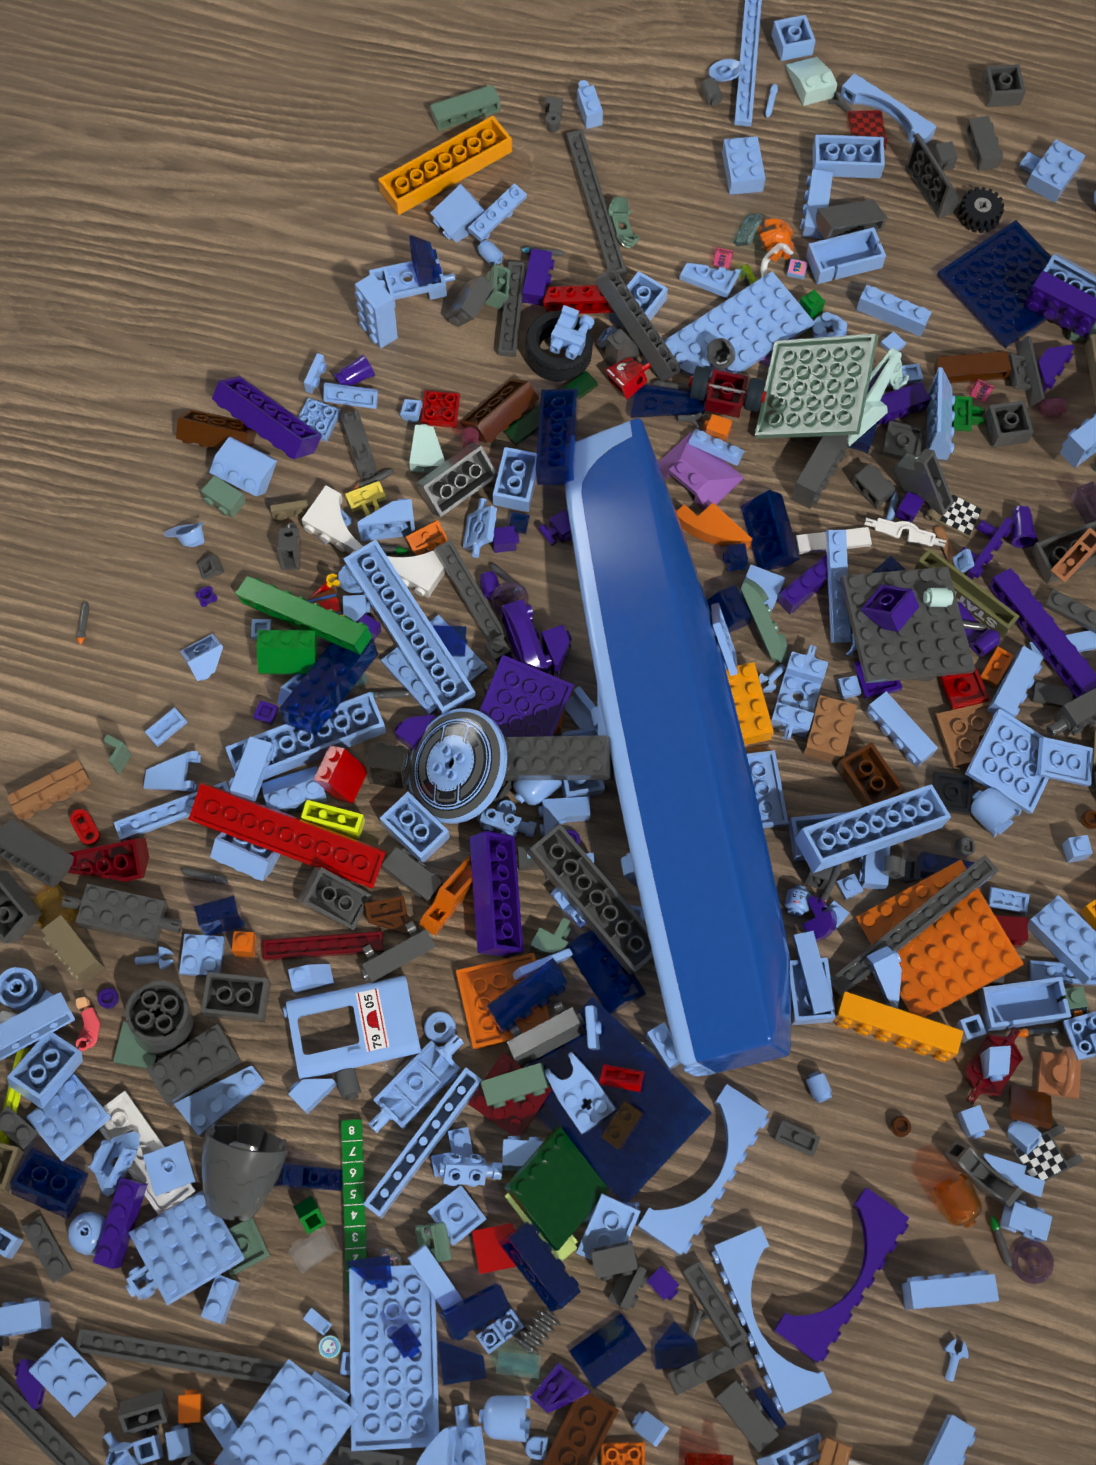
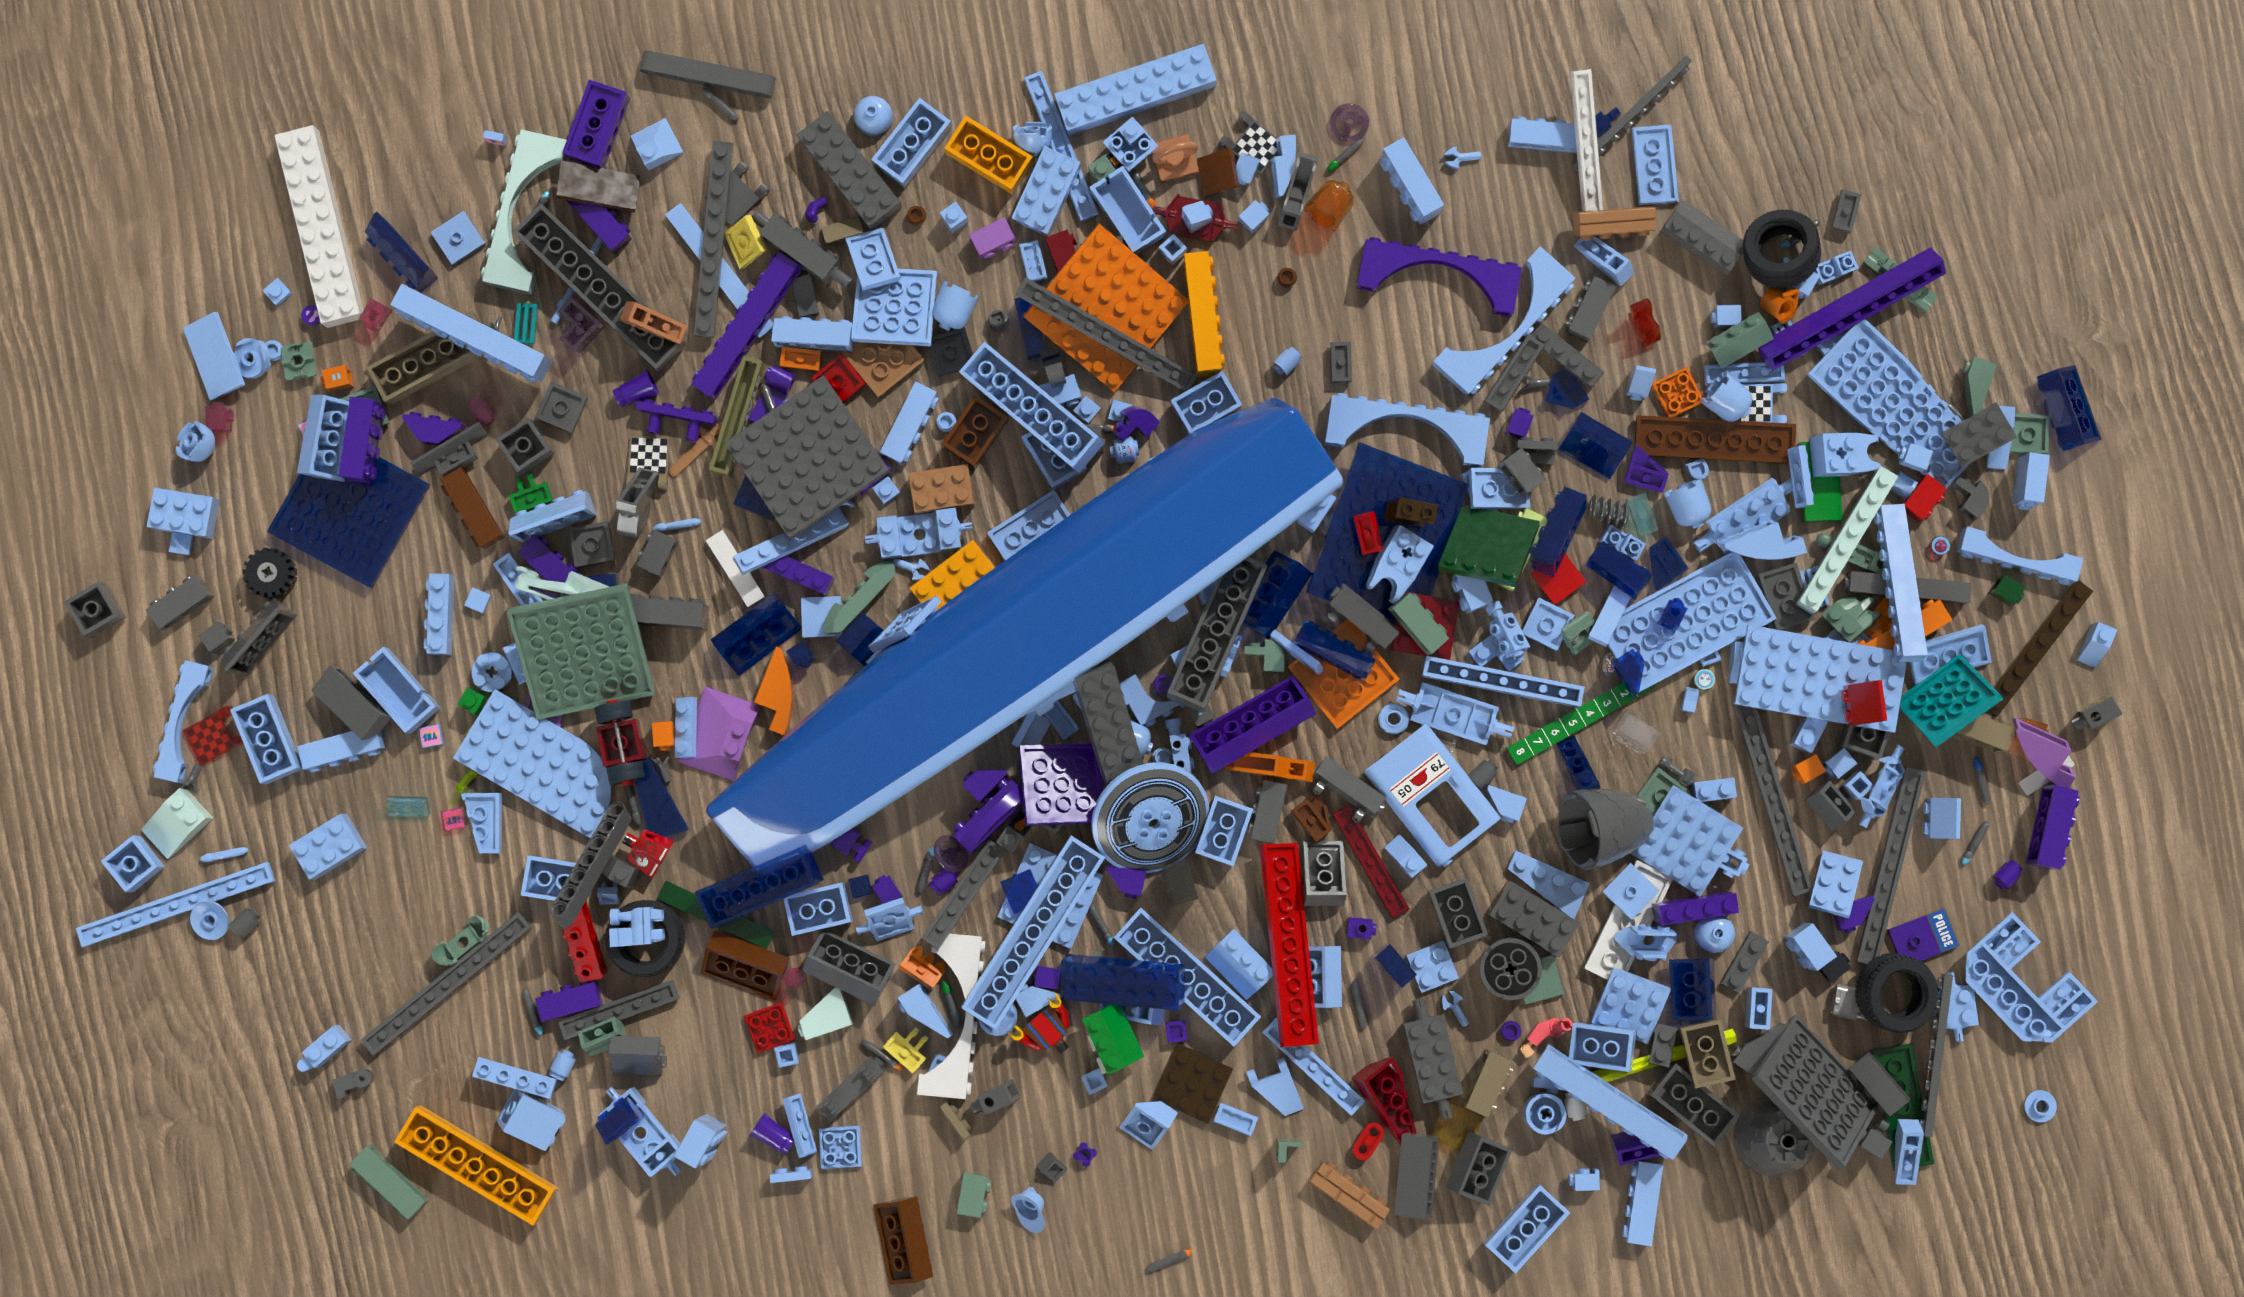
camera: 110 degrees left, 15 degrees up
(215, 707) = (1193, 1083): none -> dark brown plate
(243, 467) = (934, 1189): light blue slope -> none
(244, 944) = (1405, 932): orange brick -> none
(247, 1278) = (1684, 777): none -> dark grey bar
(251, 768) = (1246, 1008): light blue brick -> none
(266, 417) = (868, 1195): dark purple brick -> none
(277, 904) = (1353, 925): none -> dark purple brick
(304, 615) = (1067, 1042): green brick -> none
(309, 1215) = (1609, 749): green brick -> none
(334, 818) = (1252, 911): neon yellow brick -> none
(341, 774) = (1208, 923): red brick -> none
(593, 1027) = (1339, 576): light blue plate -> none
(721, 353) = (582, 765): dark grey hair -> none
(769, 1407) = (1575, 293): clear blue tile -> none
(775, 242) = (413, 766): orange helmet -> none
(813, 972) = (1191, 406): light blue tile -> none
(887, 974) = (1160, 340): light blue slope -> none
(891, 607) = (804, 477): dark purple slope -> none
(892, 760) = (946, 421): none -> light blue plate
(895, 529) = (696, 512): white piece -> none
(909, 507) = (665, 508): dark purple brick -> none
(938, 597) = (769, 437): light aqua brick -> none
(963, 561) = (704, 432): light blue tile -> none
(981, 390) = (493, 489): clear pink tile -> none
(1030, 466) = (561, 407): none -> dark grey plate
(1030, 1221) = (1319, 138): light blue brick -> none
(1044, 874) = (992, 239): none -> medium lavender brick

